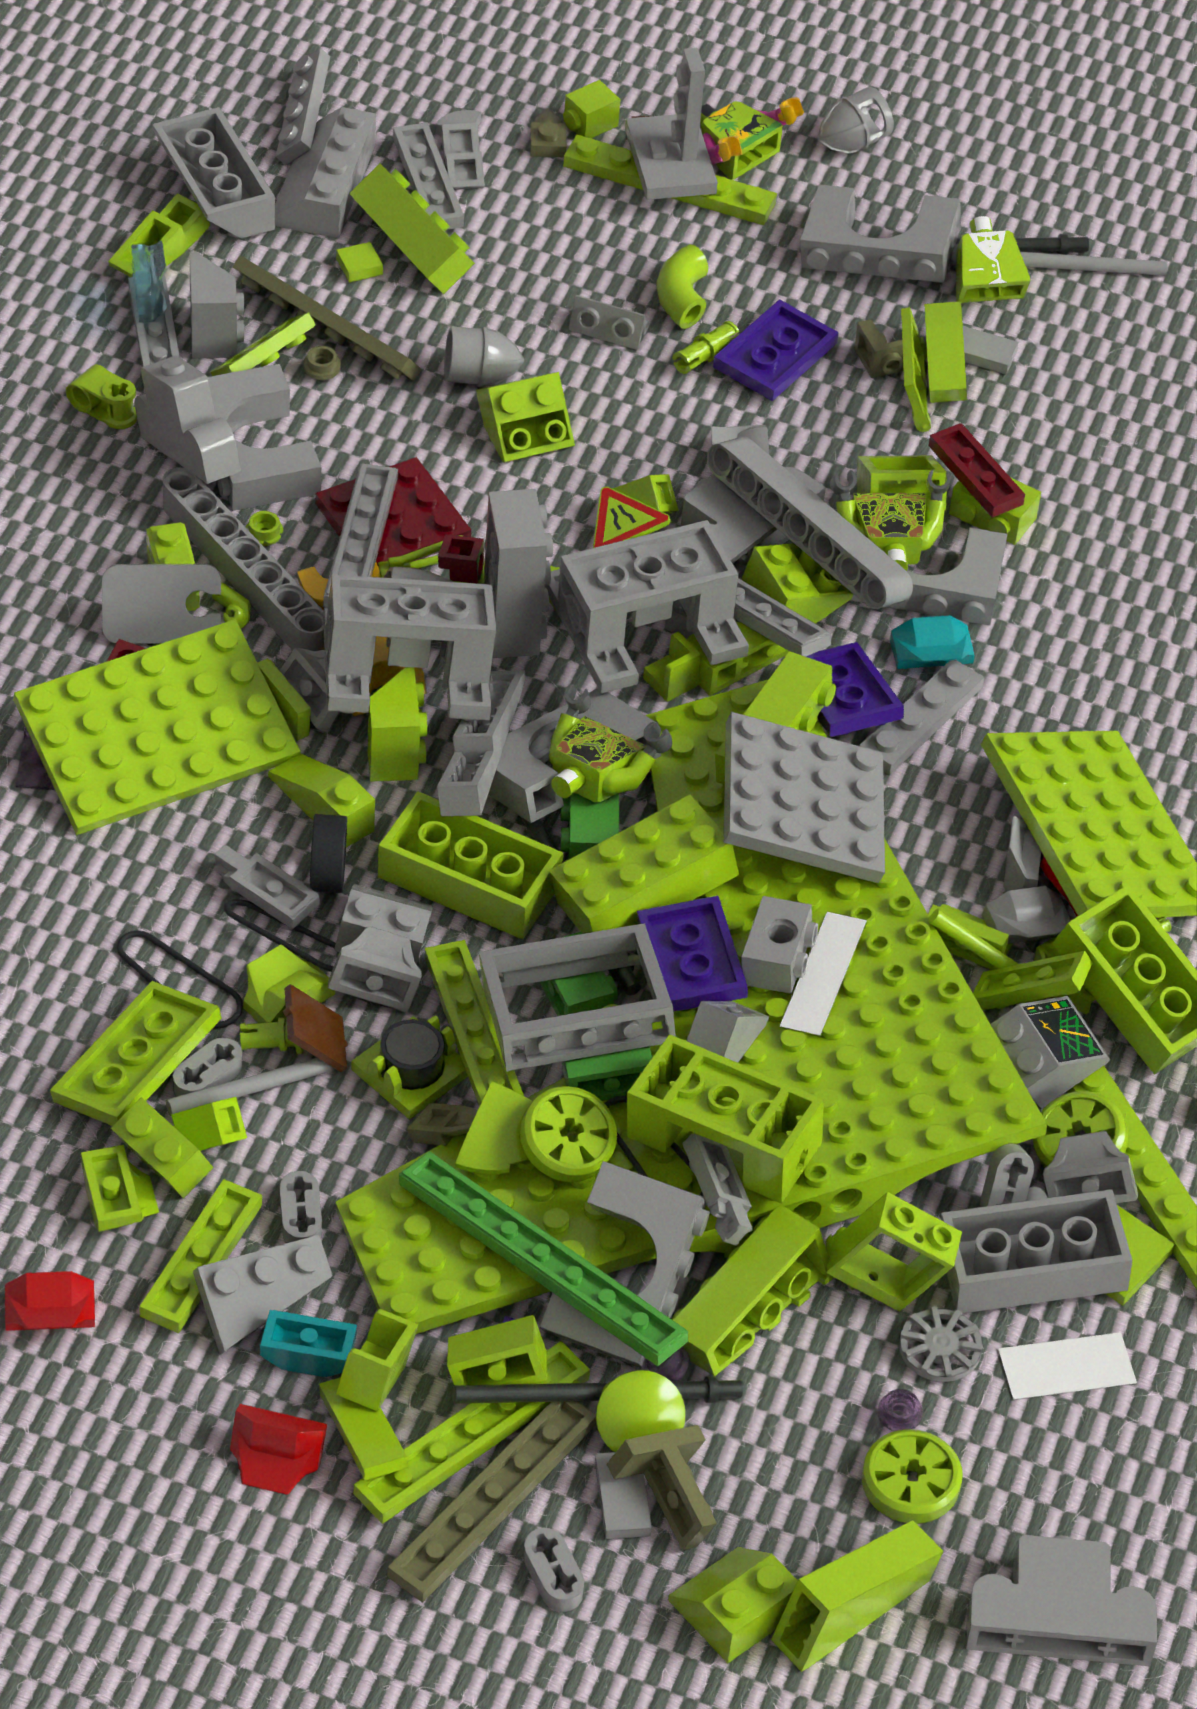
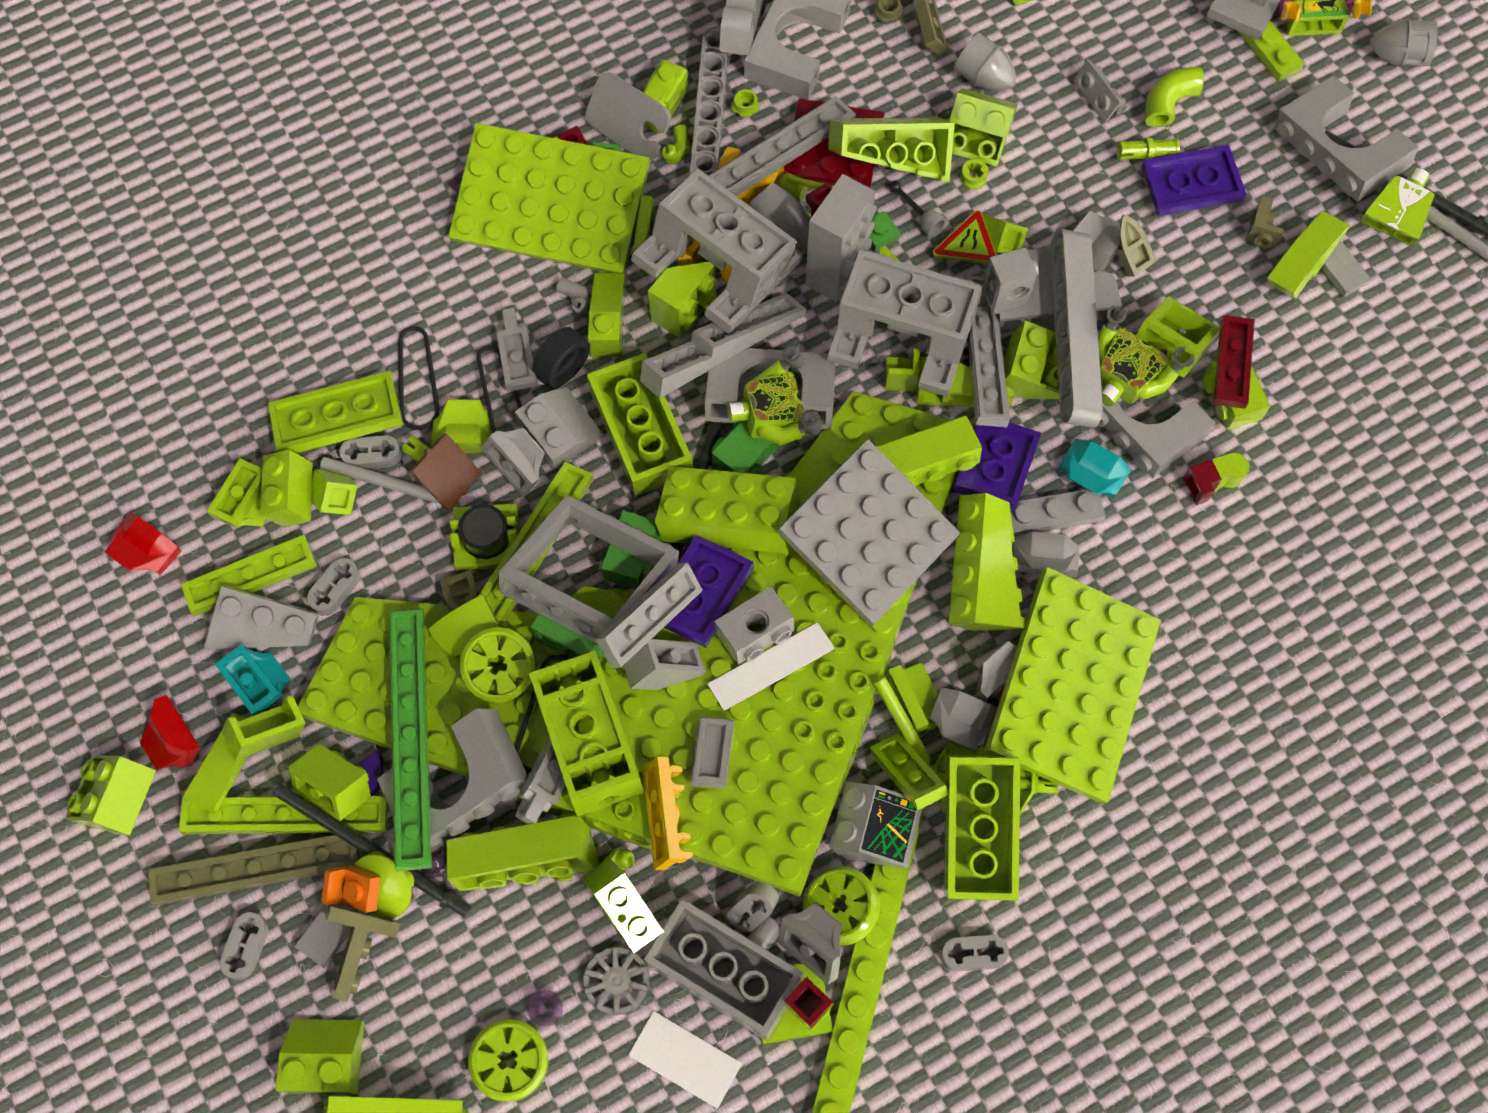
camera: 45 degrees right, 20 degrees up
(271, 1535) = (110, 794): none -> lime slope
(273, 799) = (579, 295): none -> light grey arm
(469, 468) = (902, 144): none -> lime wedge
(560, 472) = (977, 182): none -> lime bush
(563, 527) = (930, 221): none -> light grey hinge
(621, 1421) = (352, 887): none -> orange bracket
(686, 978) = (649, 615): none -> light grey plate
(718, 500) = (1010, 280): none -> light grey brick
(786, 437) = (1135, 248): none -> plate
(849, 1070) = (712, 753): none -> light grey tile
(868, 1142) = (664, 813): none -> yellow plate
(915, 370) = (1268, 247): lime window -> none
(933, 779) = (984, 567): none -> lime wedge
(957, 741) = (1043, 550): none -> light grey slope
(1045, 583) = (1214, 474): none -> leg
(1142, 1210) = (808, 1004): none -> dark red leg

